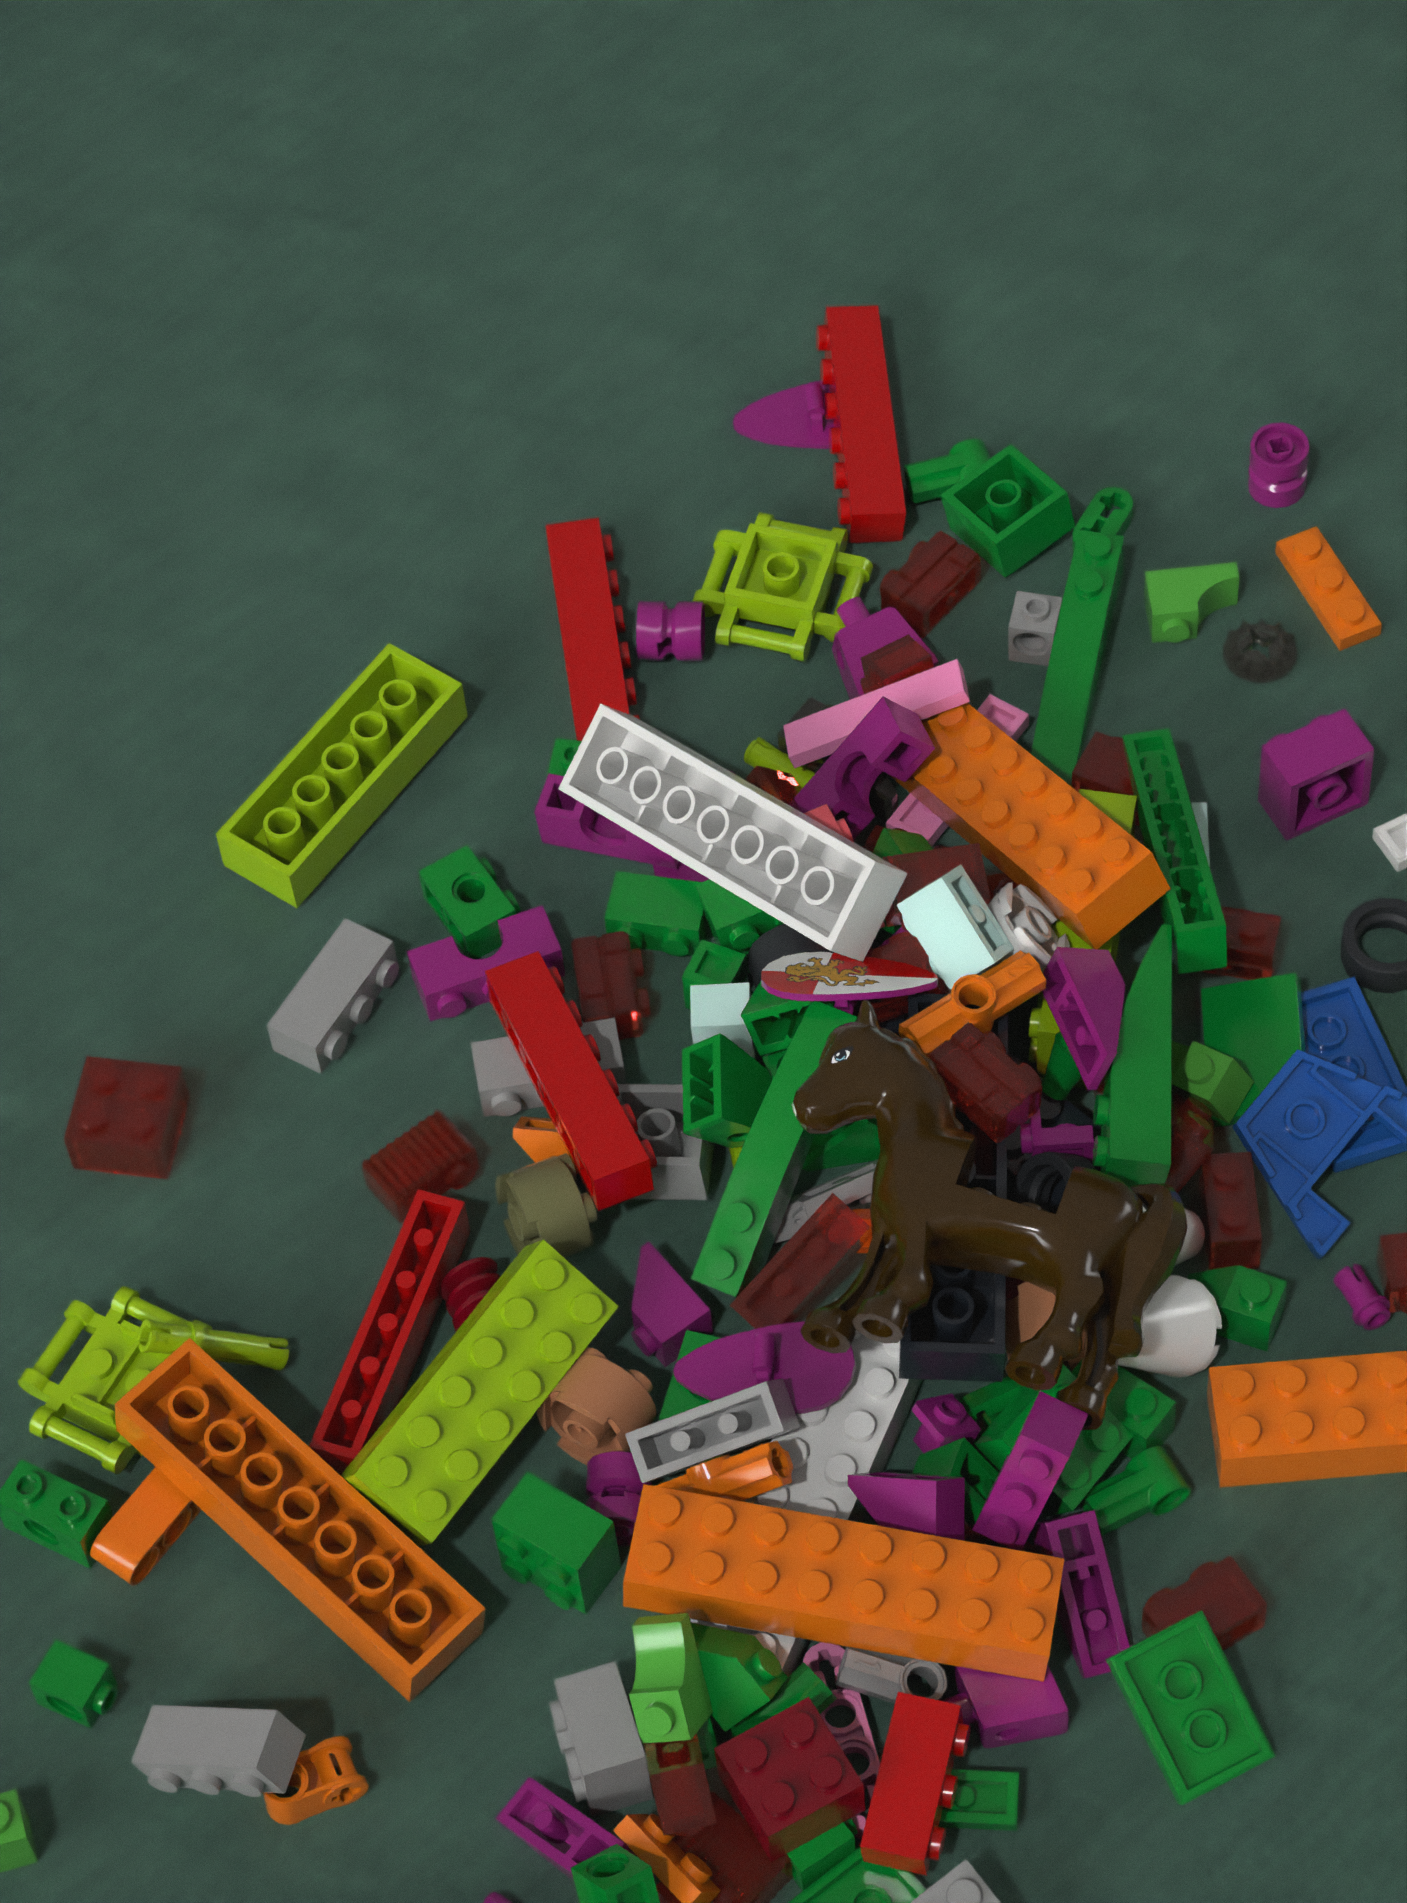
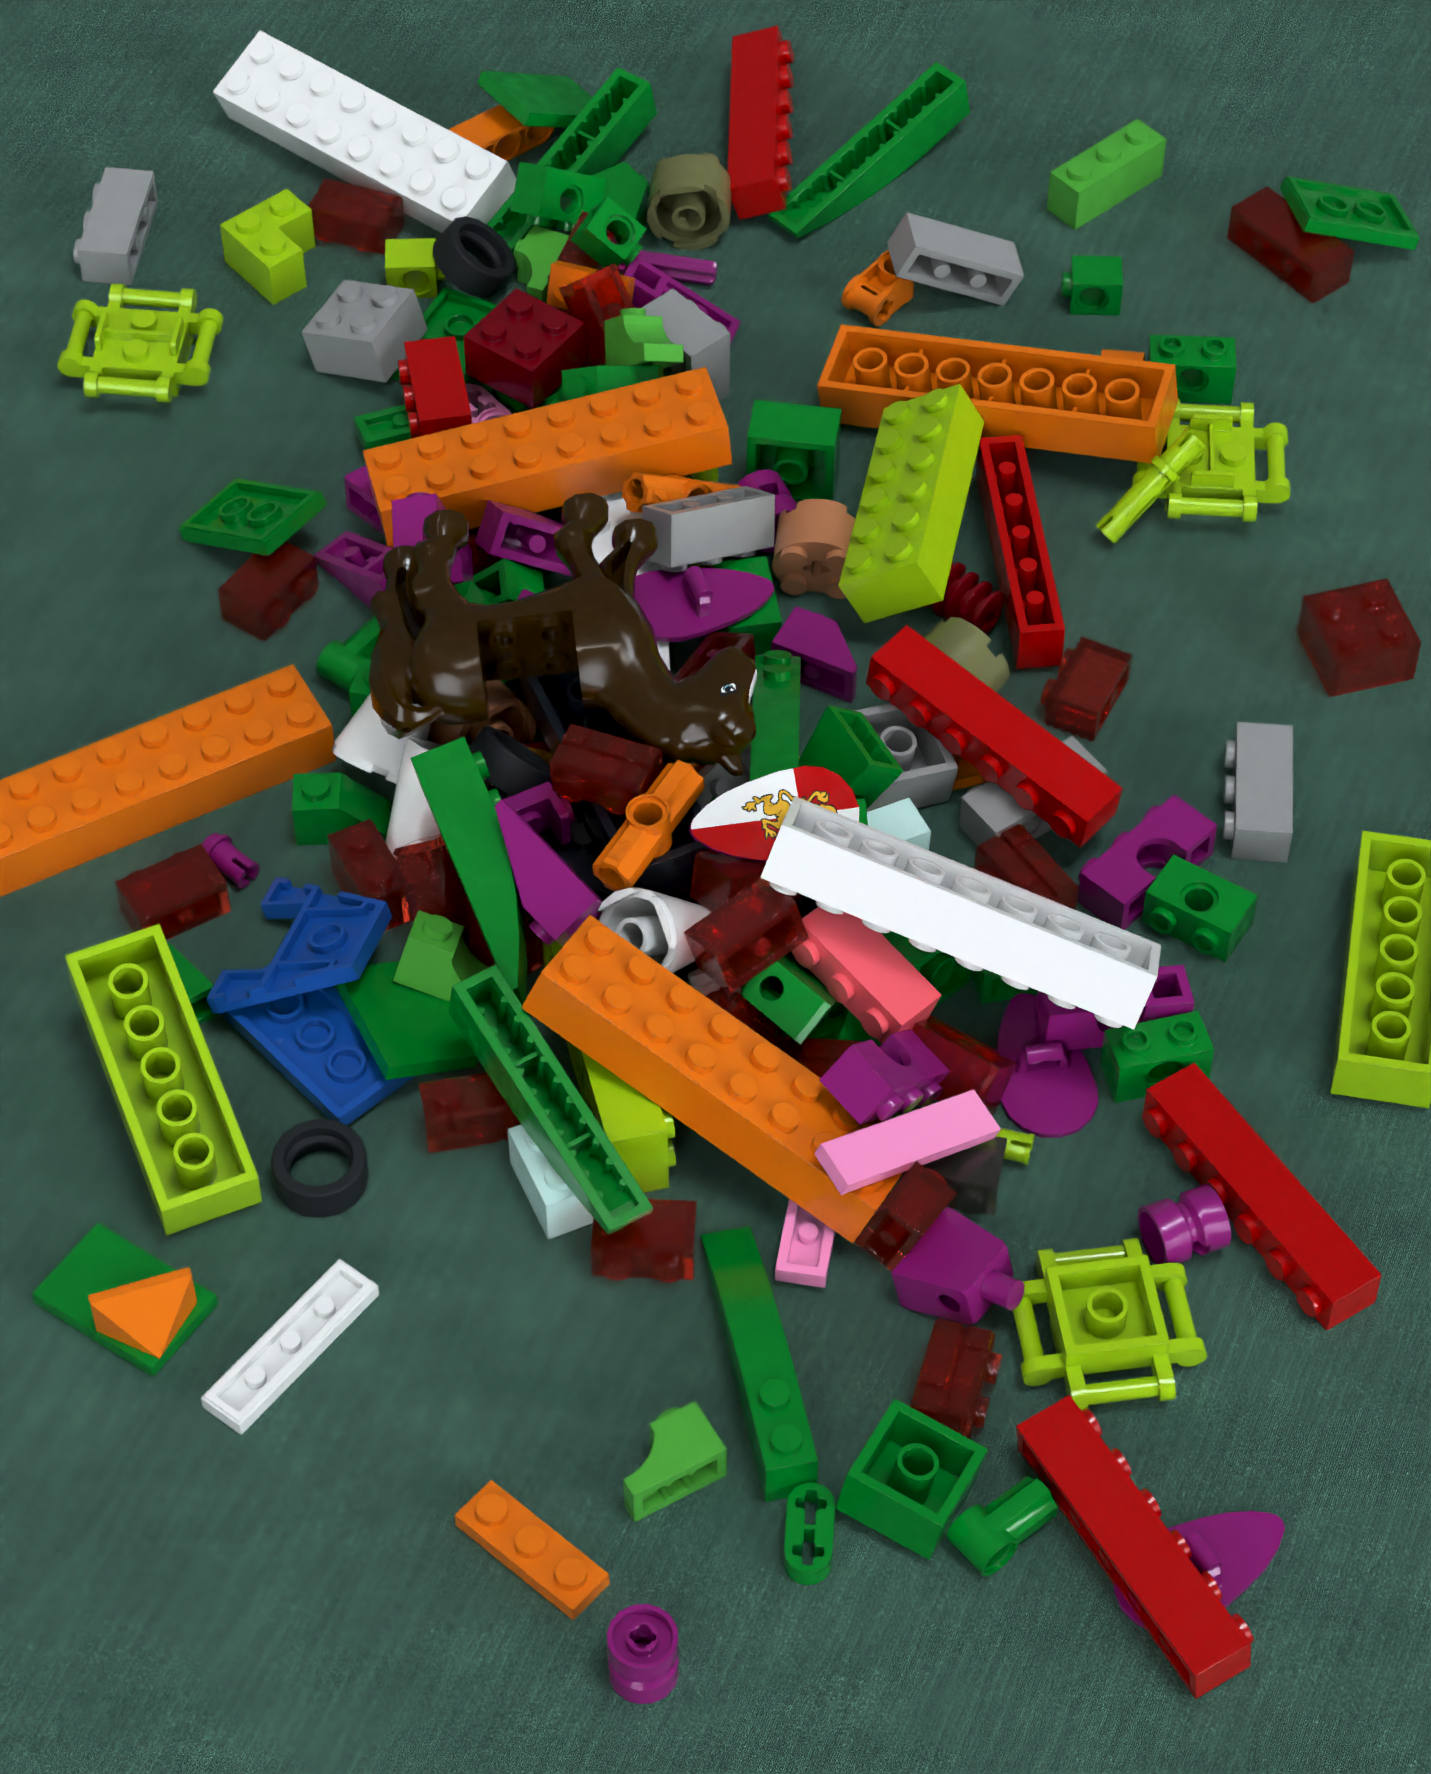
camera: 150 degrees right, 5 degrees down
(954, 926) = (696, 866): light aqua brick -> none
(1033, 627) = (818, 1362): light grey brick -> none
(1253, 665) = (574, 1466): clear smoke gear -> none
(1315, 774) = (451, 1284): magenta brick -> none

